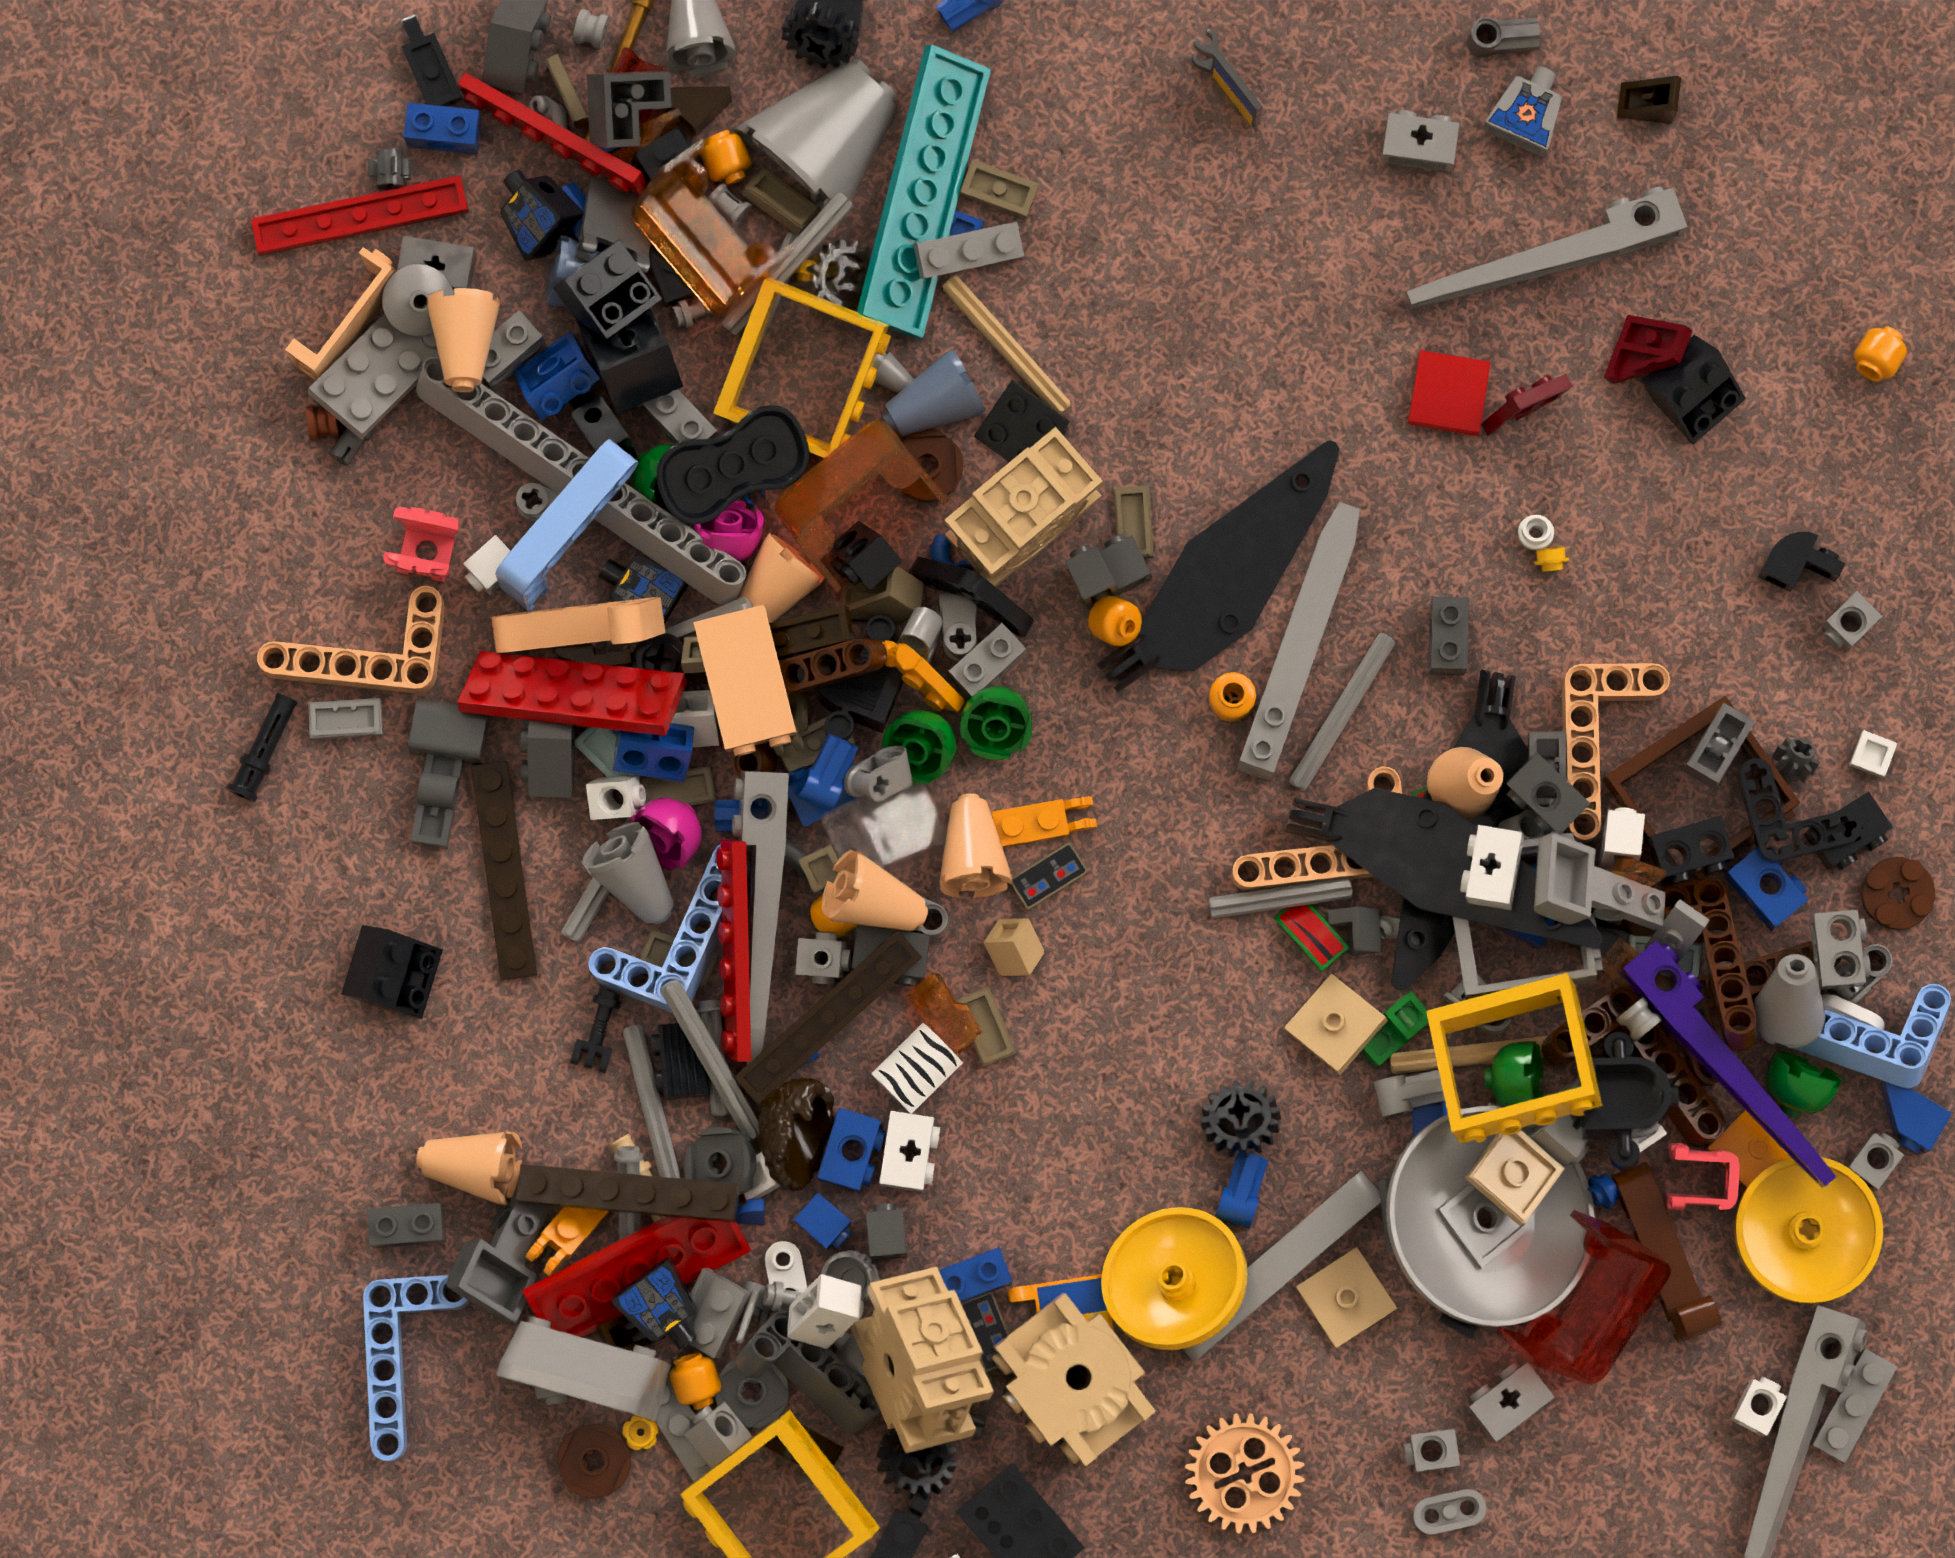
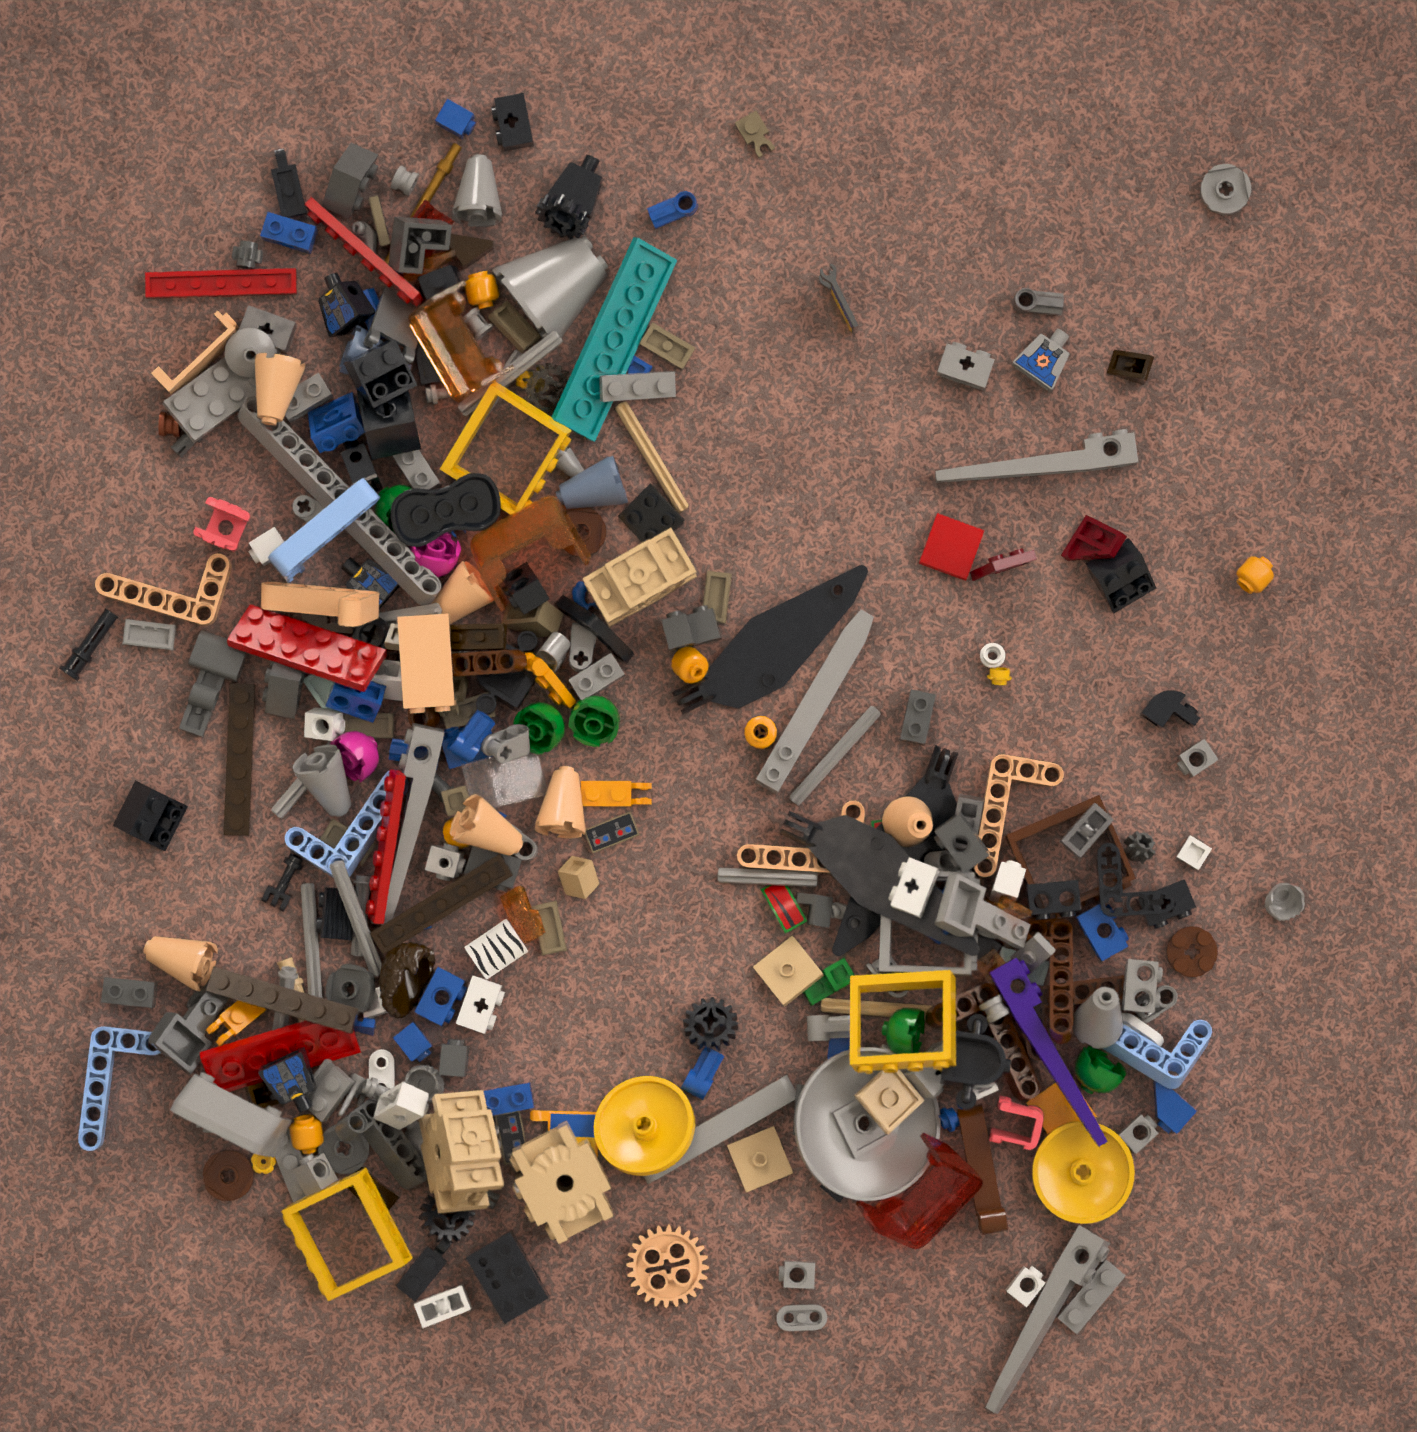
camera: 10 degrees right, 5 degrees up
(1531, 1397) = (848, 1262): light grey brick -> none

